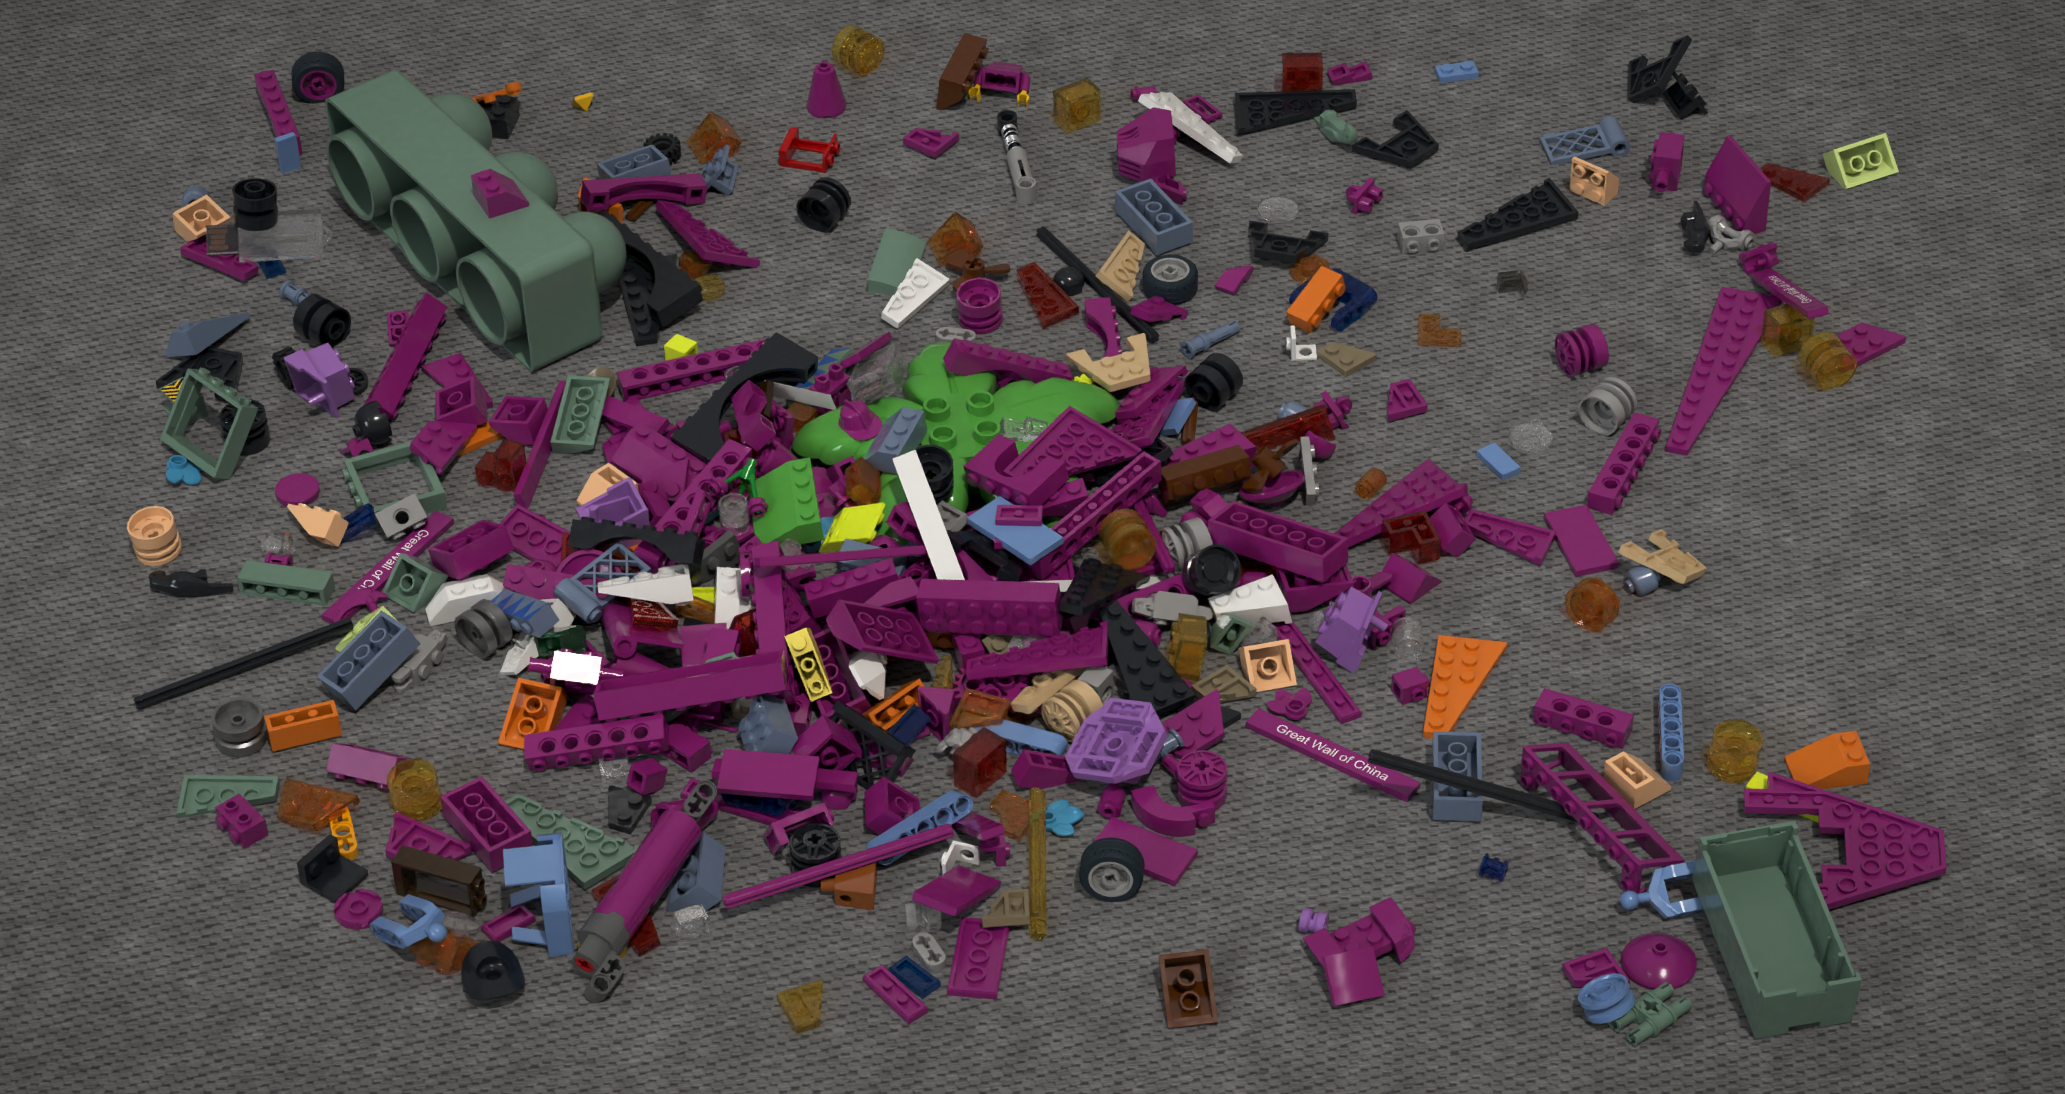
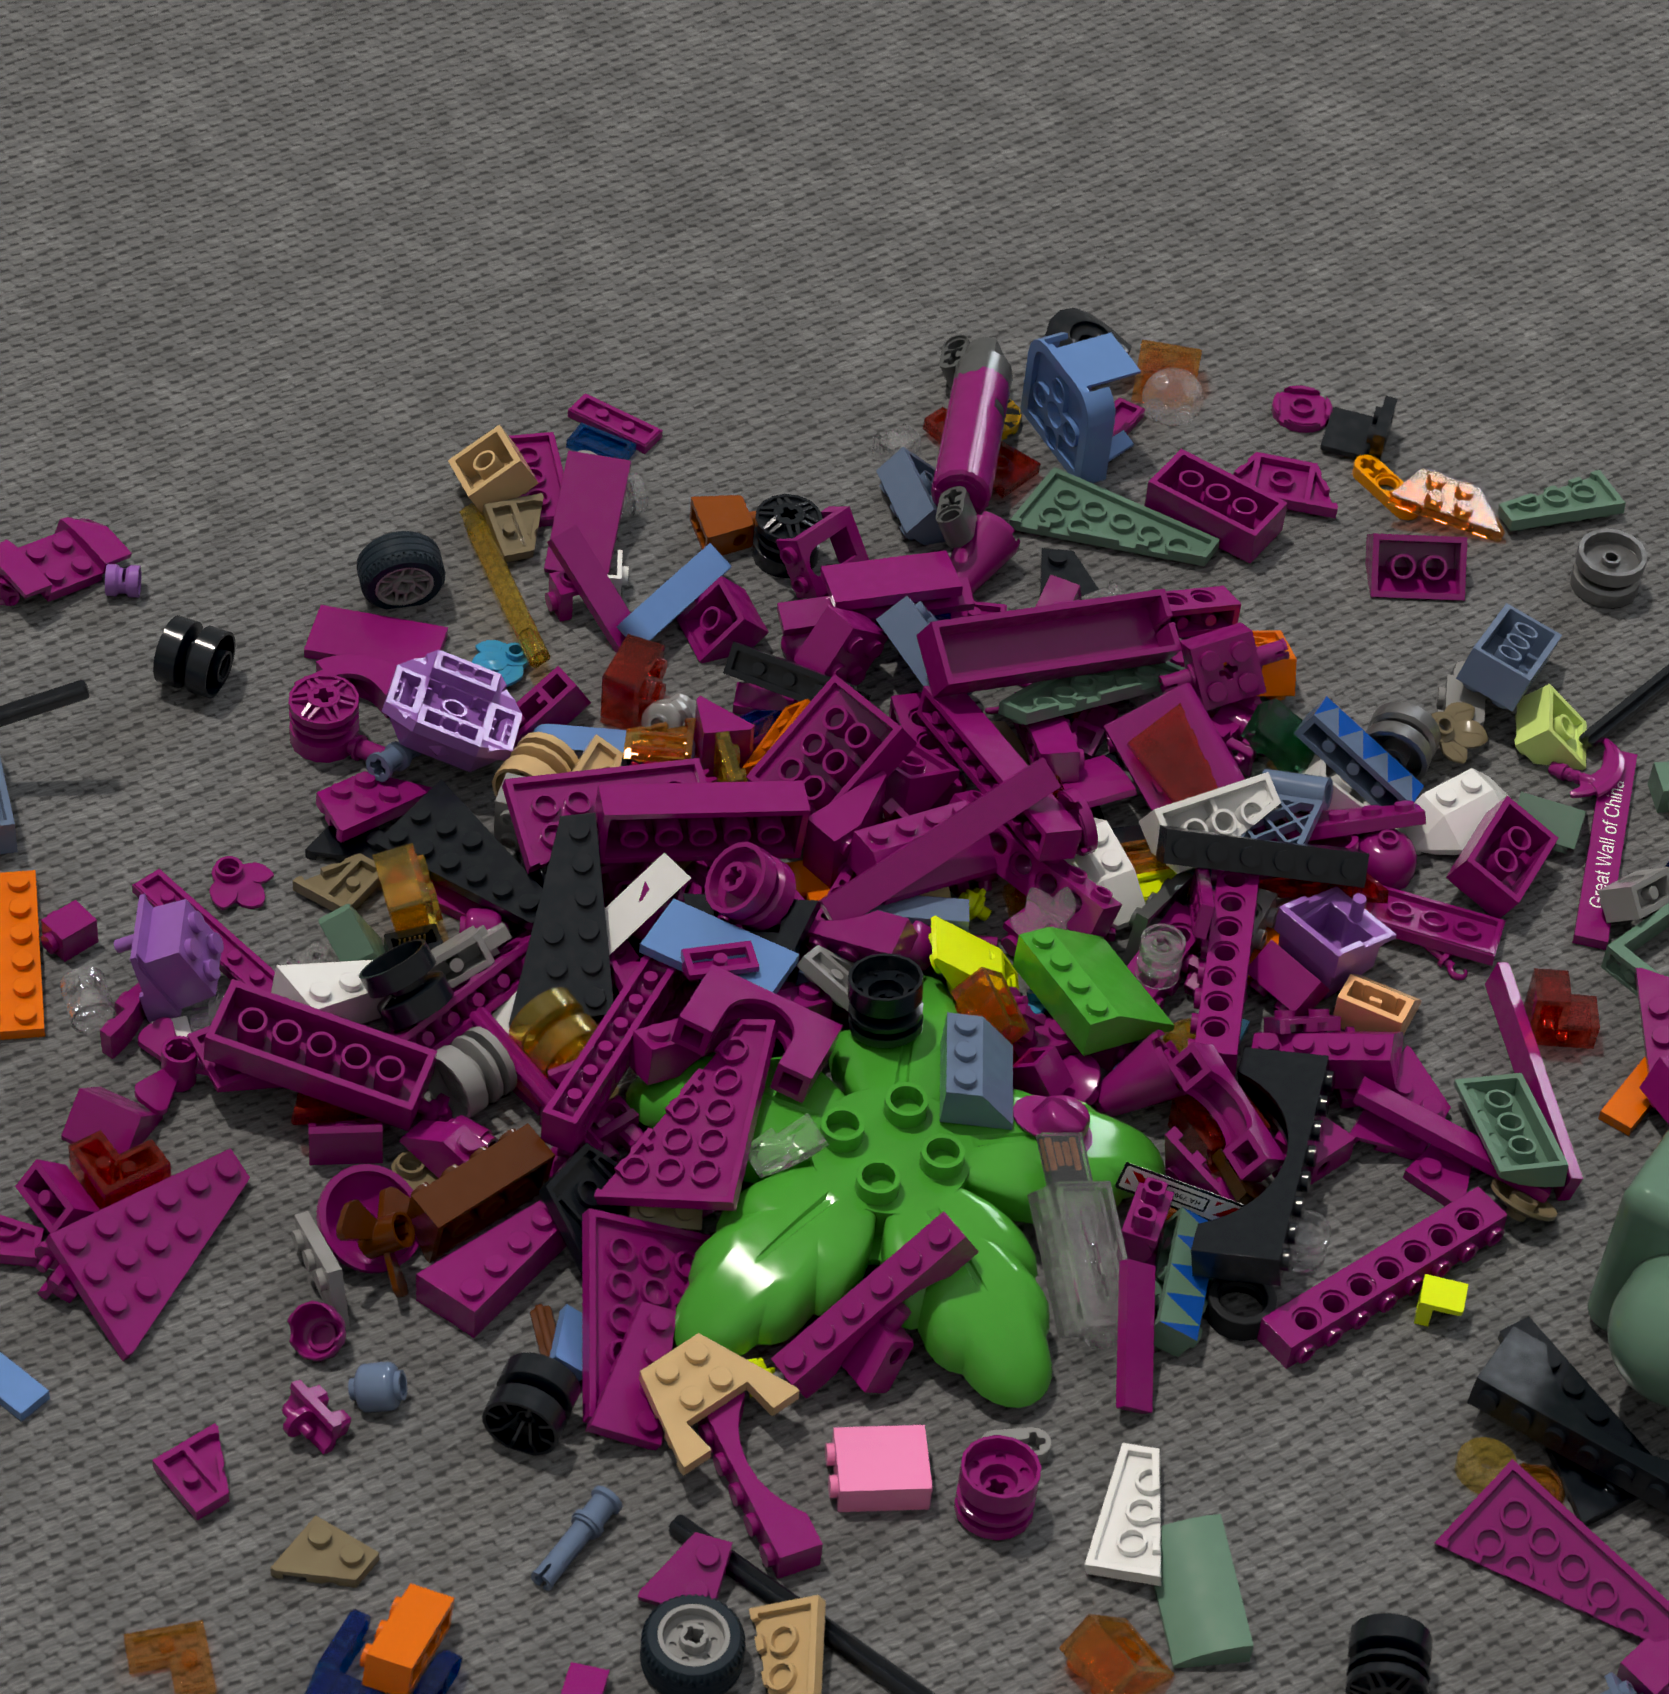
camera: 155 degrees right, 5 degrees up
(241, 821) = (1512, 468): magenta brick -> none
(303, 725) = (1533, 581): orange brick -> none
(411, 860) = (1220, 402): dark brown window -> none
(414, 789) = (1330, 522): clear yellow wheel -> none
(427, 924) = (1211, 356): medium blue piece -> none
(445, 632) = (1460, 731): none -> dark tan plate
(519, 418) = (1596, 1102): magenta slope -> none
(756, 505) = (1174, 1002): plant -> none
(803, 1005) = (715, 386): clear yellow wing -> none
(809, 663) = (936, 739): light yellow slope -> none
(837, 866) = (743, 513): magenta axle -> none
(927, 517) = (854, 916): white sticker -> none
(972, 267) = (1047, 1584): reddish brown piece -> none
(980, 549) = (750, 886): none -> magenta wheel
(1013, 814) = (569, 657): clear orange tile -> none
(1013, 937) = (492, 469): none -> tan brick
(1035, 335) = (879, 1468): none -> bright pink brick
(1045, 296) = (894, 1567): clear red wing -> none
(1069, 280) = (878, 1620): black hair -> none
(1188, 989) = (261, 477): reddish brown slope -> none
(1268, 665) = (287, 926): light nougat slope -> none
(1280, 836) = (194, 656): none -> black wheel
(1291, 428) = (346, 1347): clear red wing -> none
(1295, 349) = (420, 1550): white bracket -> none
(1332, 755) = (159, 820): magenta tile -> none
(1353, 976) = (43, 510): magenta slope -> none
(1371, 483) = (212, 1280): clear orange brick -> none

